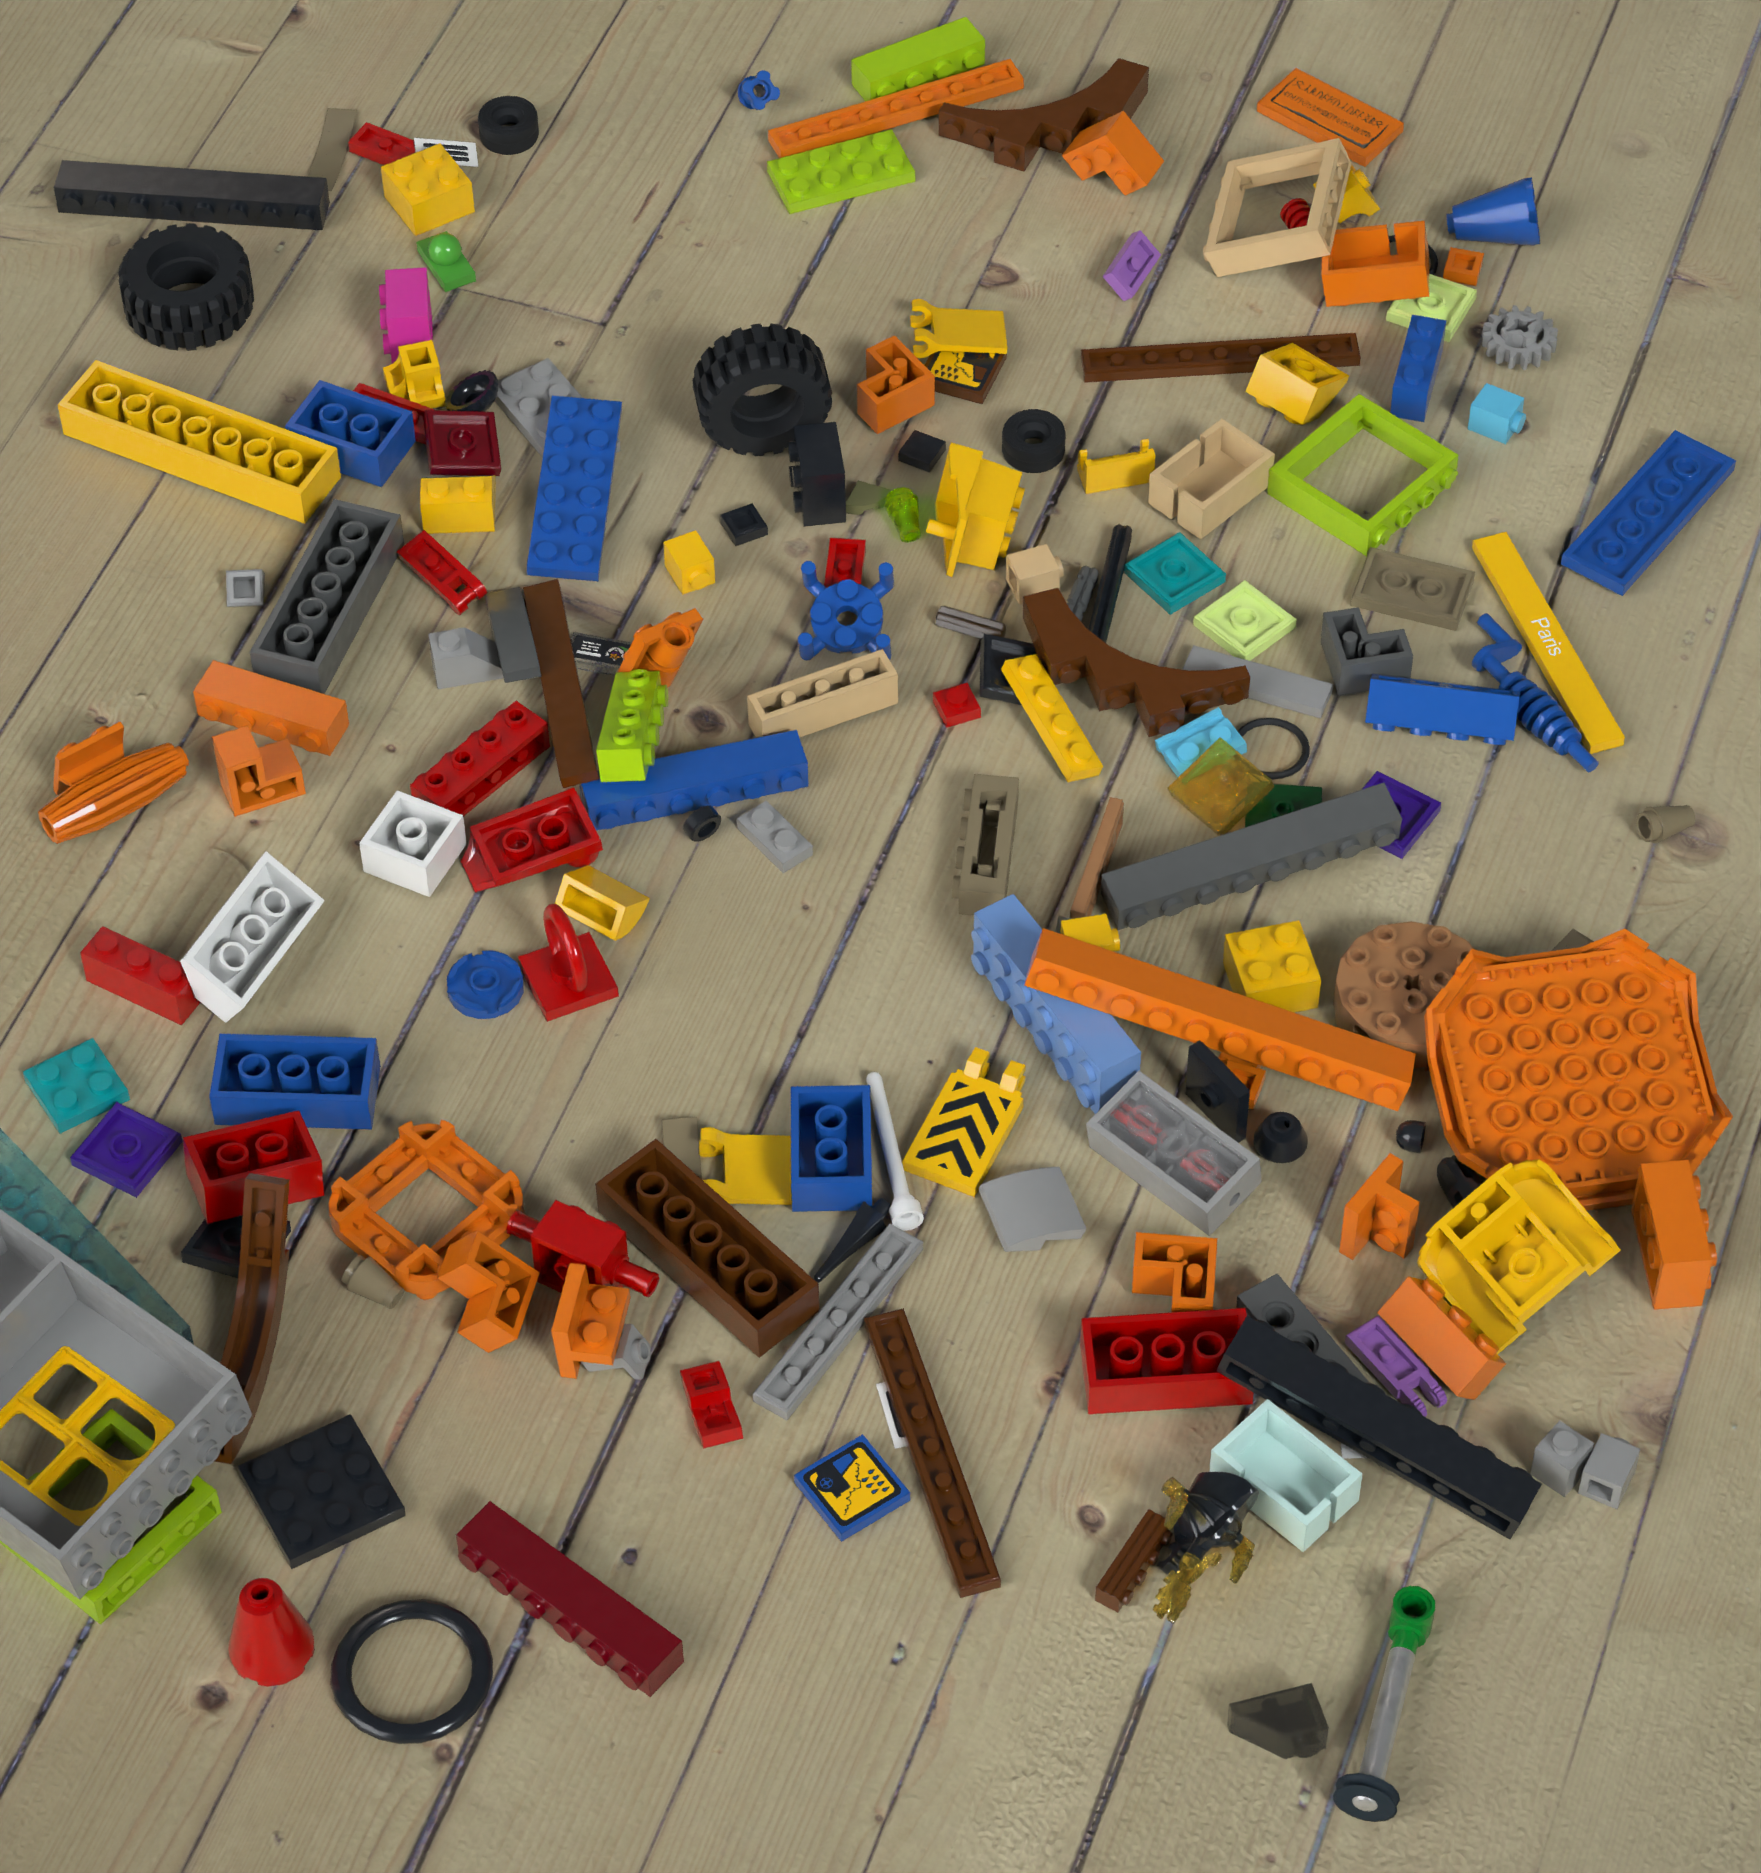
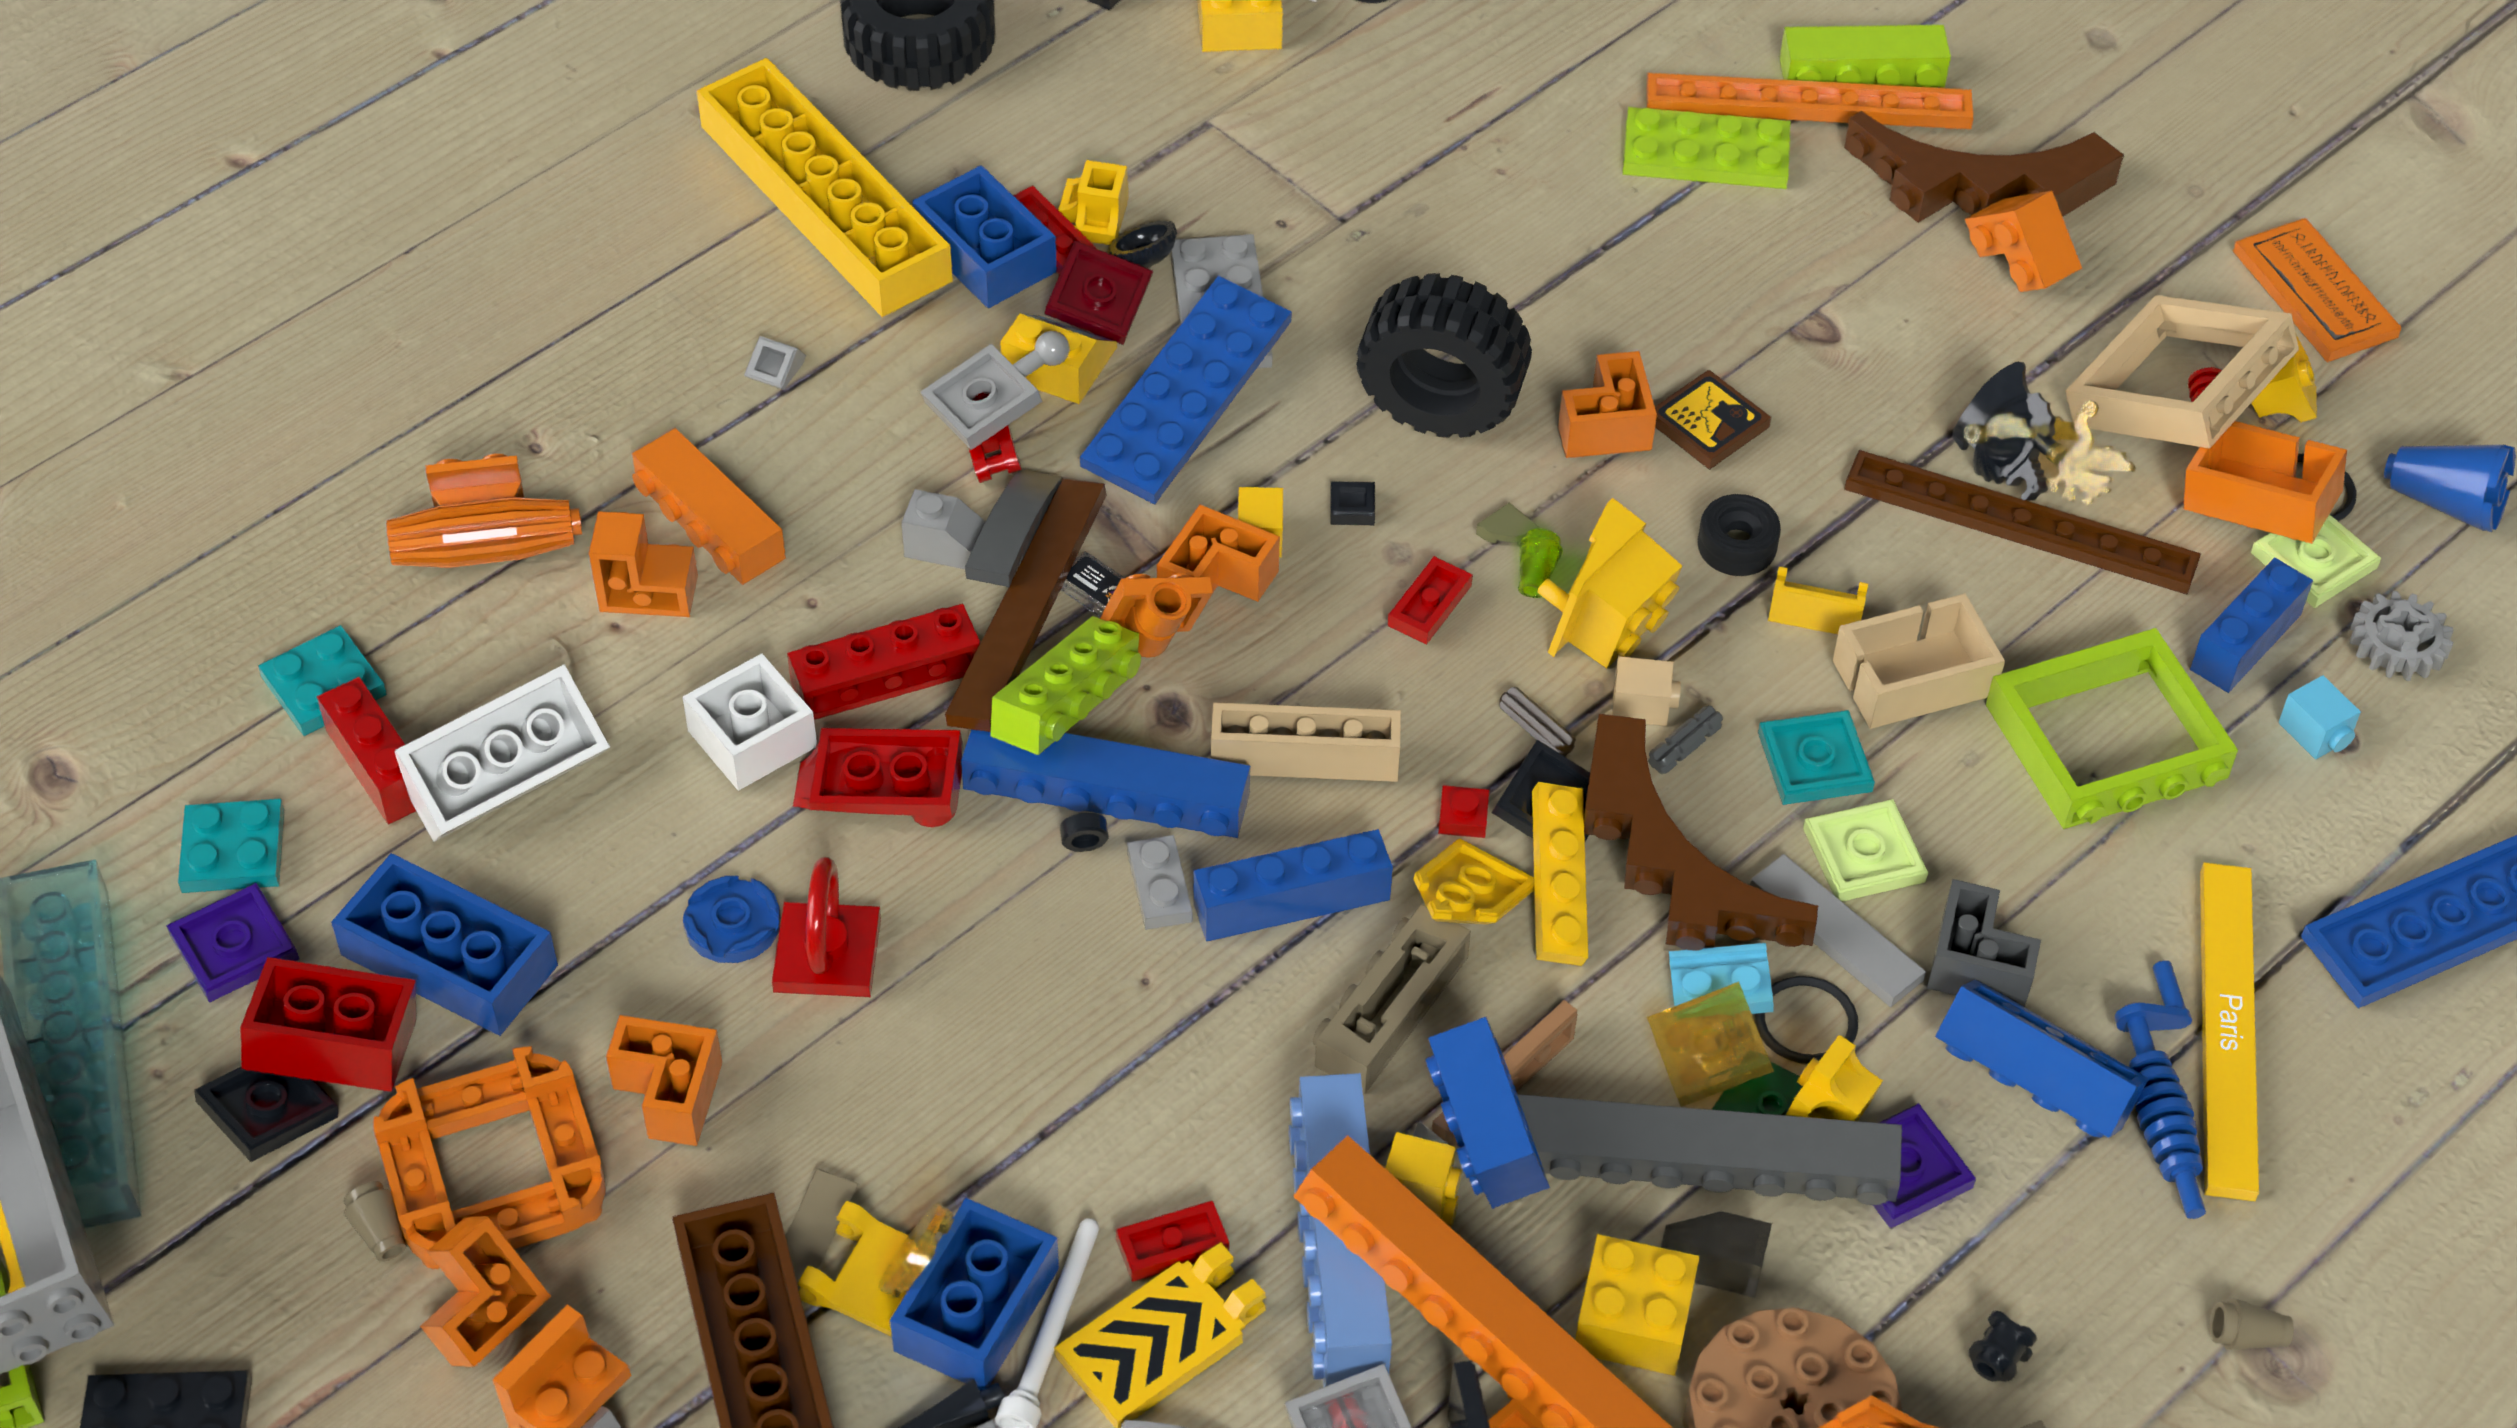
camera: 25 degrees right, 0 degrees up
(53, 945) = (314, 669): none -> teal plate
(258, 1294) = (208, 1212): reddish brown arch -> none
(328, 596) = (837, 408): dark grey brick -> none
(407, 309) = (1126, 126): dark pink brick -> none
(430, 529) = (994, 375): none -> light grey plate
(446, 261) = (1214, 90): bright green tile -> none
(520, 1093) = (673, 1069): none -> orange brick
(573, 1236) = (616, 1301): red brick -> none
(601, 902) = (915, 876): yellow brick -> none
(681, 589) = (1226, 551): none -> orange brick
(764, 87) = (1671, 16): blue brick -> none
(776, 1135) = (915, 1251): none -> clear yellow tile
(817, 474) = (1459, 477): black brick -> none
(843, 597) = (1389, 632): blue plate -> none
(873, 799) = (1292, 885): none -> blue brick
(922, 451) = (1599, 490): black tile -> none
(935, 1061) = (1166, 1239): none -> red plate
(957, 330) = (1727, 373): yellow flag -> none
(998, 749) = (1470, 885): none -> yellow tile
(1110, 581) = (1725, 744): black axle -> none
(1114, 883) = (1485, 1114): none -> blue brick
(1131, 265) = (1964, 377): medium lavender plate -> none
(1189, 288) = (2014, 426): none -> helmet
(1295, 383) = (2089, 585): yellow slope -> none
(1316, 908) = (1728, 1249): none -> clear smoke slope
(1322, 777) = (1835, 1086): none -> yellow brick
(1413, 588) = (2096, 893): dark tan tile -> none
(1463, 266) = (2379, 523): orange plate -> none
(1518, 899) = (2001, 1348): none -> black brick

